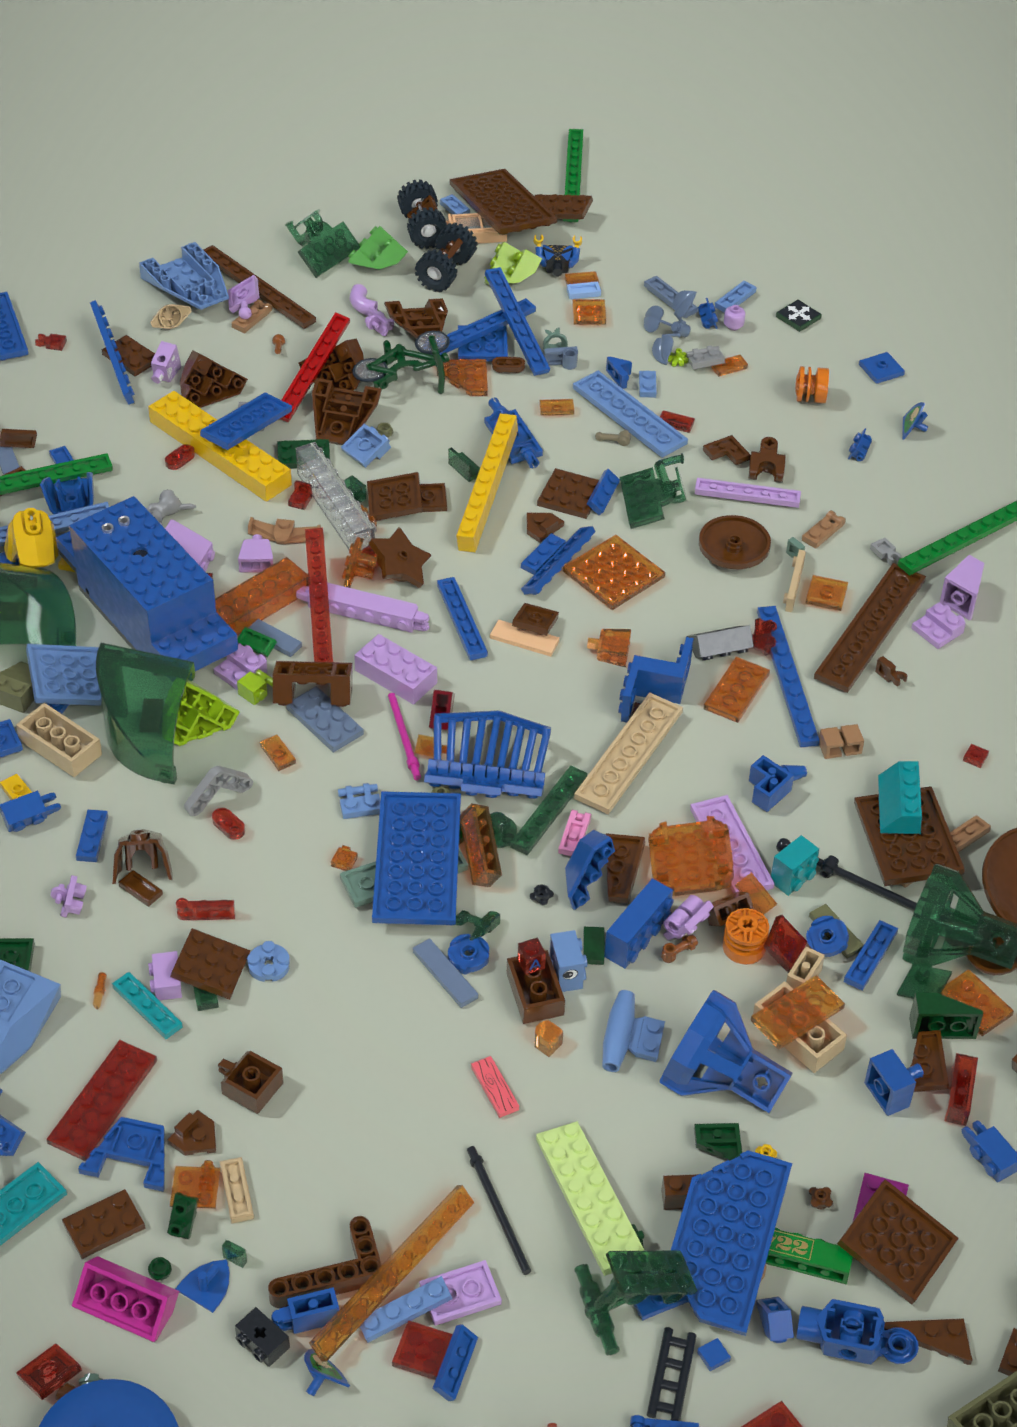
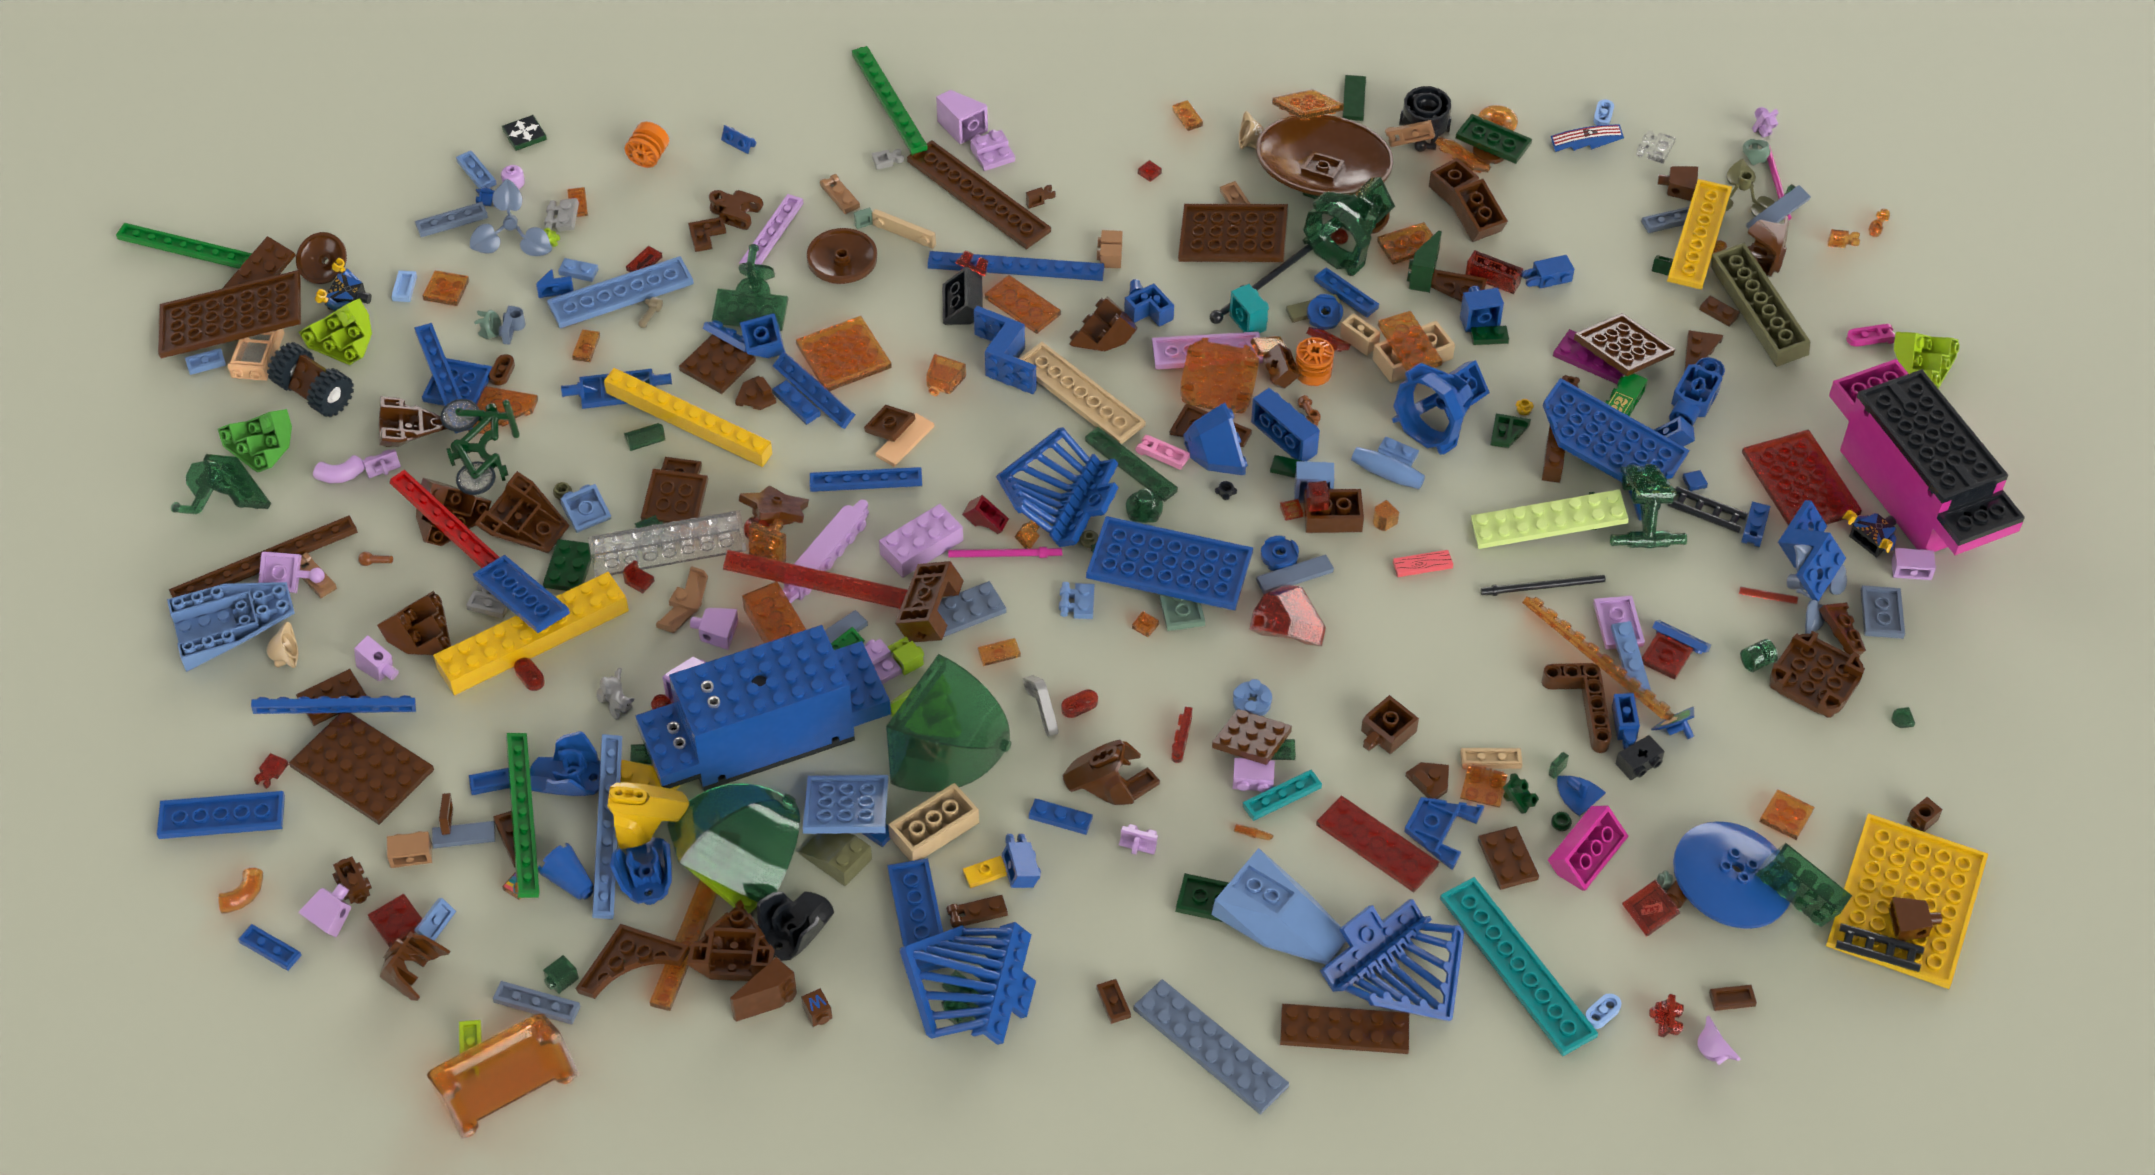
camera: 75 degrees left, 5 degrees up
(64, 388) = (361, 766): none -> reddish brown plate
(375, 967) = (1288, 614): none -> clear red brick
(420, 205) = (221, 385): black plate -> none
(480, 845) = (1170, 515): clear orange brick -> none
(483, 925) = (1253, 532): clear green piece -> none
(517, 321) = (452, 341): blue plate -> none
(584, 277) = (384, 284): clear orange tile -> none
(591, 231) = (314, 253): none -> reddish brown dish
(606, 510) = (763, 336): none -> blue slope
(687, 917) = (1290, 388): lavender plate -> none
(724, 754) = (1105, 328): none -> reddish brown brick
(826, 593) = (925, 212): clear orange plate -> none
(866, 1105) = (1489, 335): none -> dark green plate
(881, 367) = (630, 94): blue plate -> none
(900, 798) = (1199, 222): teal slope -> none
(914, 418) = (722, 90): blue shield -> none
(923, 979) = (1383, 267): clear green piece -> none

